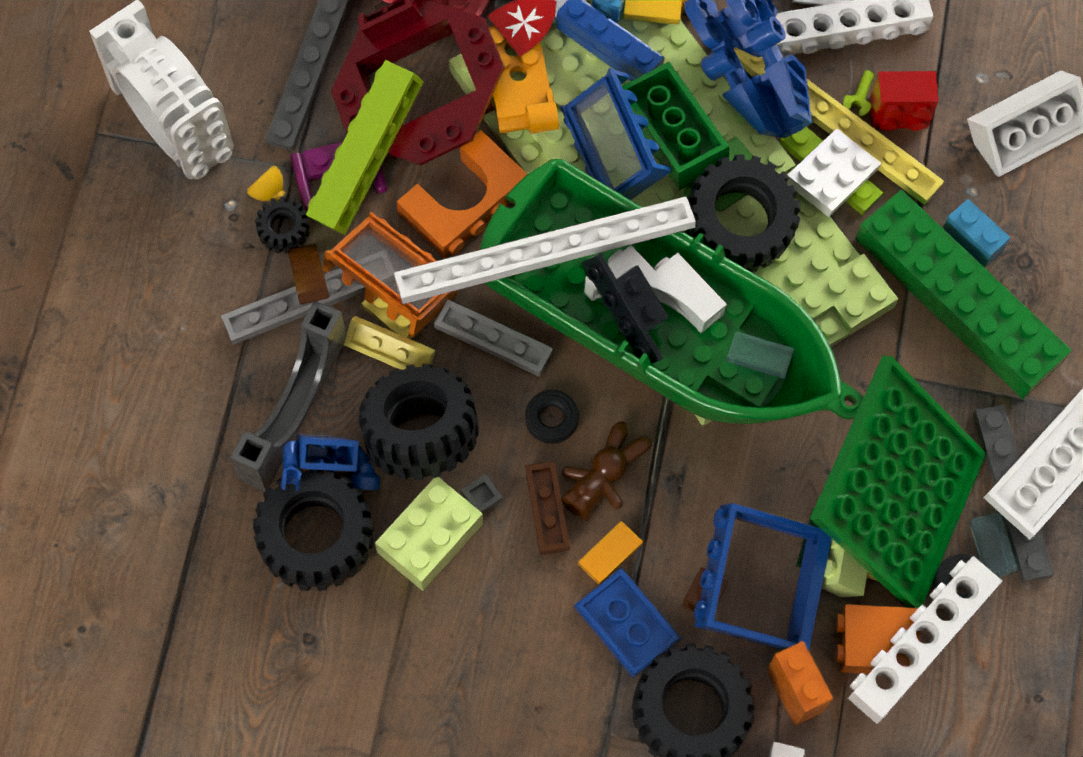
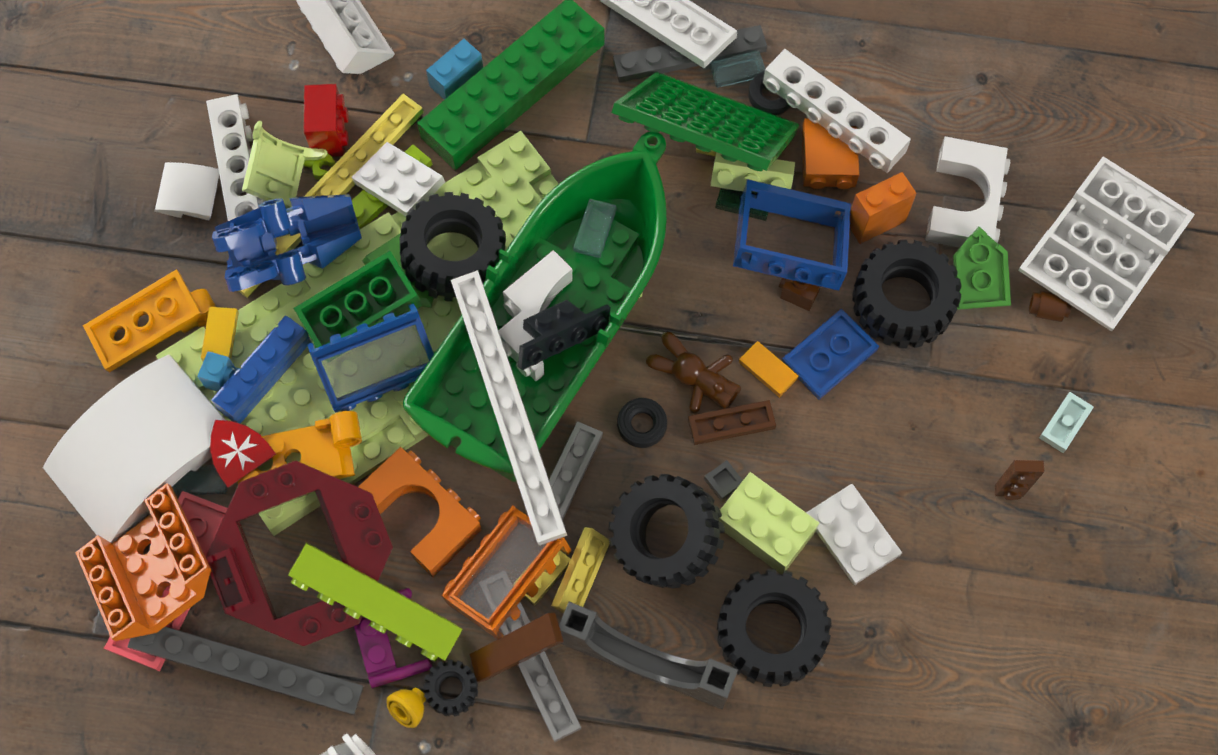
camera: 90 degrees left, 0 degrees up
(328, 454) = (703, 618): blue torso -> none
(416, 628) = (854, 534): none -> white plate
(844, 53) = (276, 166): none -> yellowish green piece

